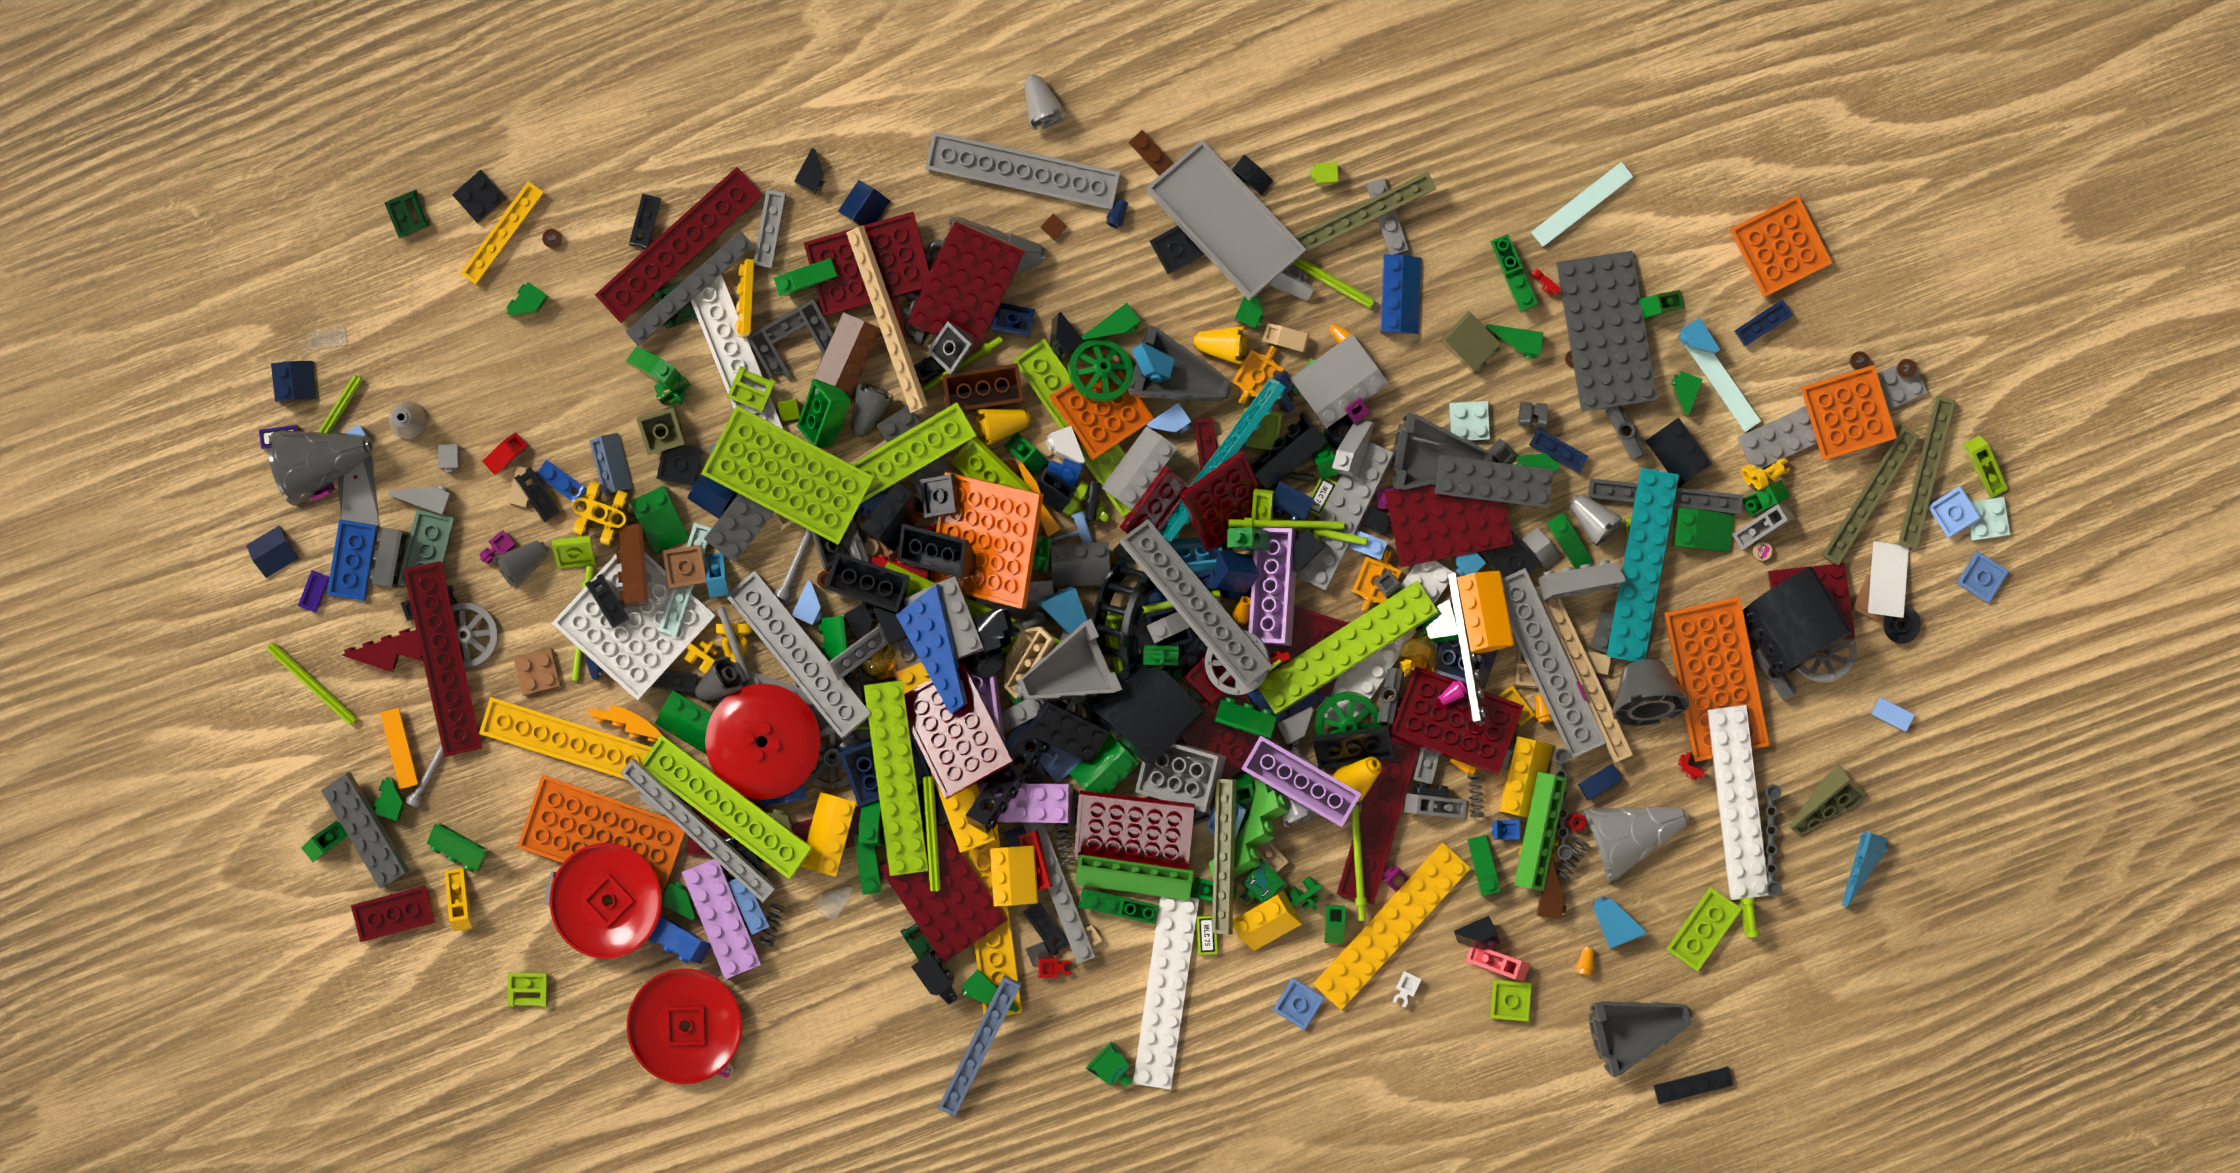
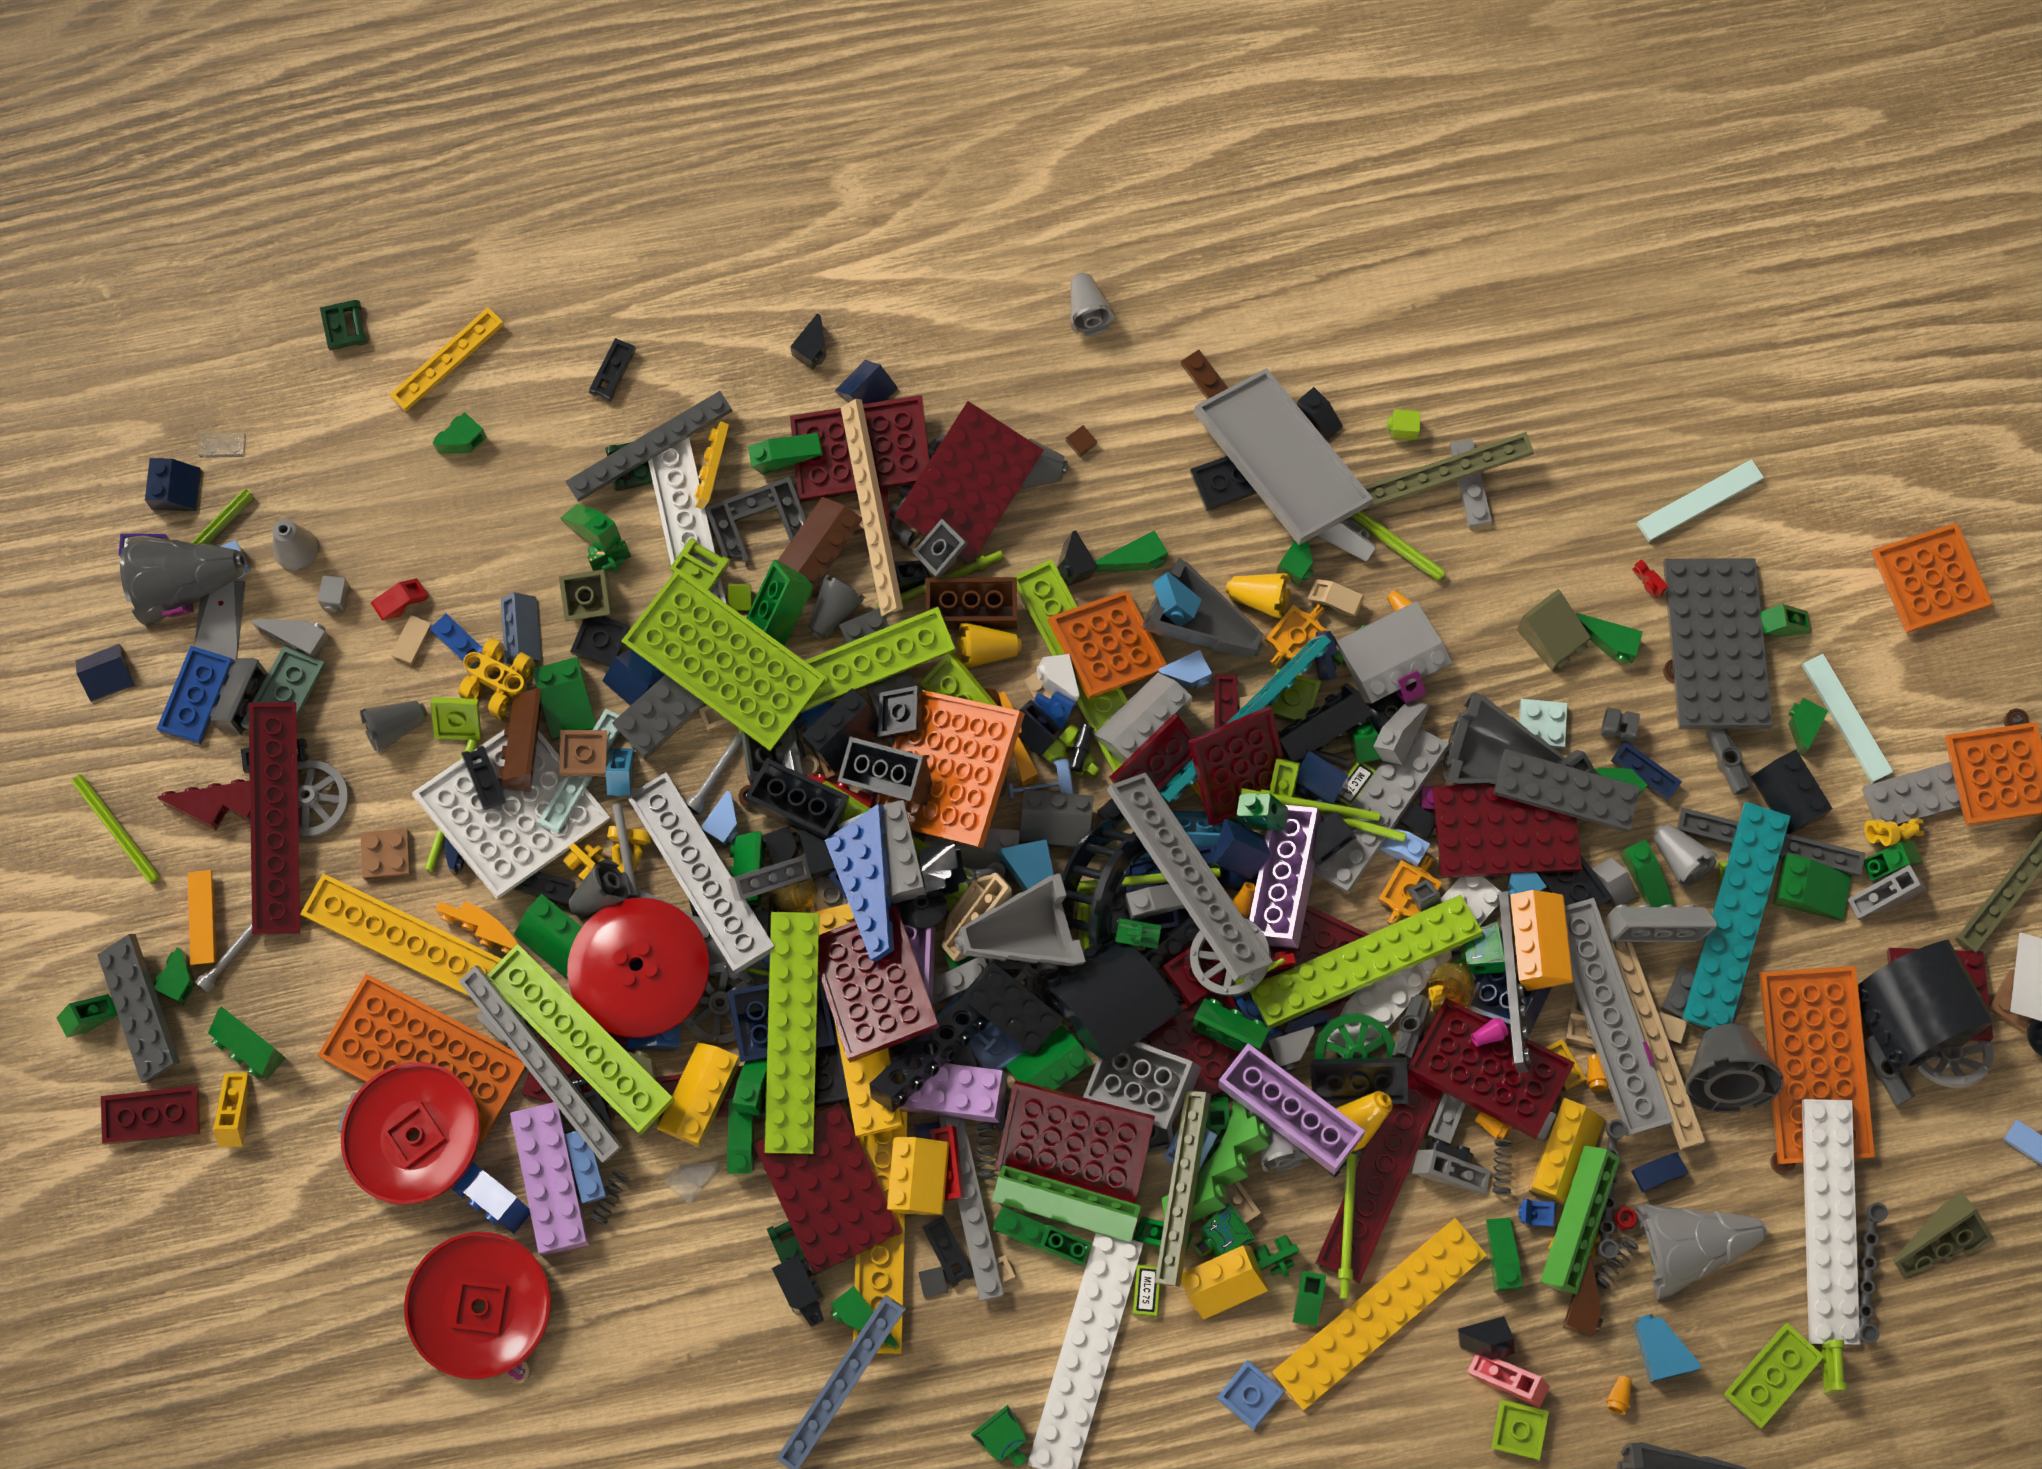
camera: 10 degrees right, 15 degrees down
(313, 591) = (142, 724): dark purple tile -> none
(479, 196) = (429, 319): black plate -> none
(501, 543) = (370, 698): magenta plate -> none
(527, 983) = (294, 1224): lime plate -> none
(537, 495) = (427, 650): black plate -> none
(552, 238) = (502, 374): reddish brown tile -> none
(678, 245) = (645, 400): dark red plate -> none
(679, 900) = (500, 1149): green slope -> none
(769, 228) = (753, 397): light grey plate -> none
(931, 829) = (824, 1109): lime axle -> none
(1013, 320) = (1017, 536): dark blue slope -> none
(1022, 170) = (1055, 374): light grey plate -> none
(1026, 453) = (1012, 683): green slope -> none
(1042, 553) = (1010, 799): green hips -> none
(1050, 967) = (945, 1300): red plate -> none
(1098, 372) = (1113, 598): green wheel -> none
(1117, 214) = (1156, 437): dark blue cone -> none
(1390, 874) = (1388, 1247): magenta bracket -> none
(1400, 294) = (1476, 568): blue slope -> none
(1407, 985) = (1390, 1391): white plate -> none
(1513, 273) = (1612, 563): green slope -> none
(1692, 772) = (1774, 1174): red bracket -> none
(1698, 337) = (1827, 663): dark azure slope -> none
(1762, 551) = (1882, 924): tan tile -> none
(1763, 323) = (1904, 660): dark blue plate -> none
(1866, 858) = (1989, 1311): dark azure wedge -> none

